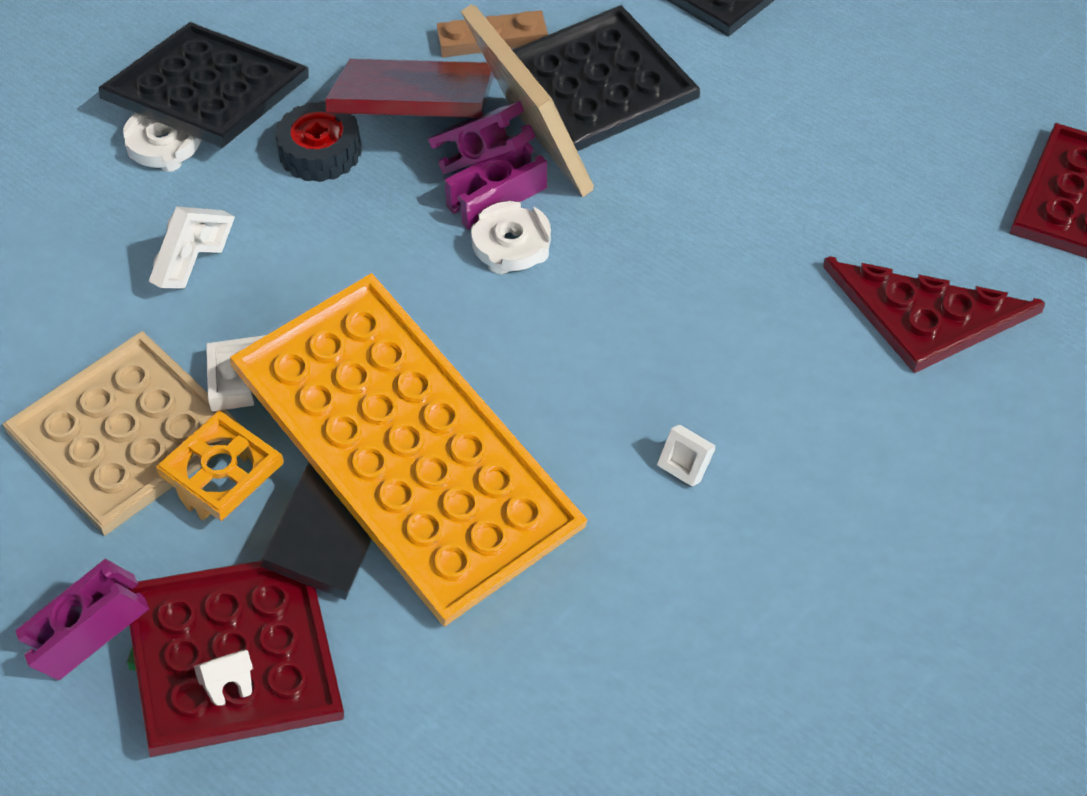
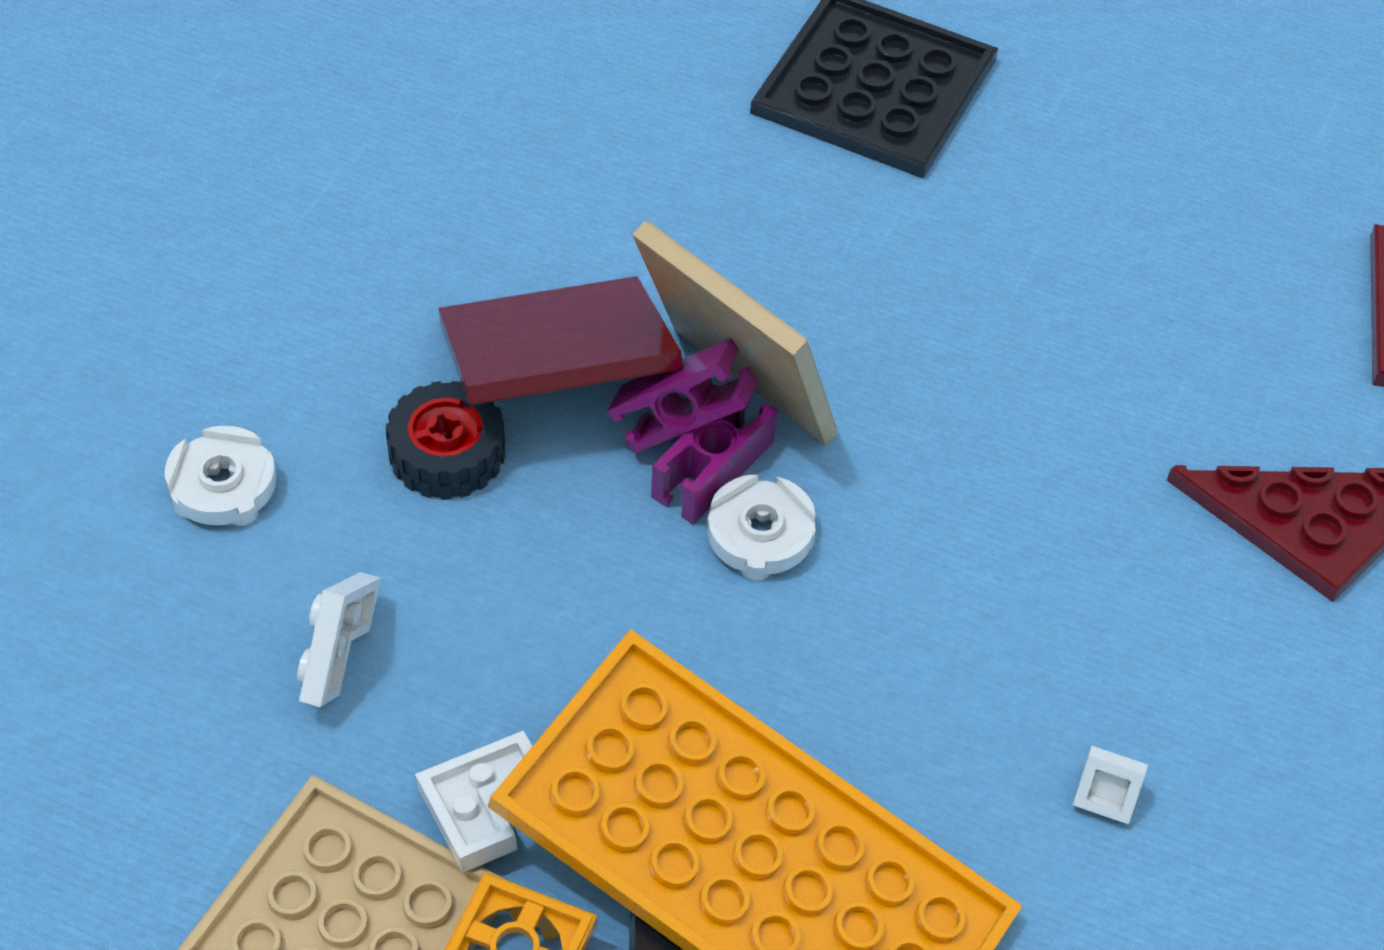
camera: 20 degrees left, 0 degrees up
(204, 84) = (252, 386): black tile -> none
(515, 30) = (609, 233): medium nougat plate -> none
(606, 76) = (799, 256): black tile -> none

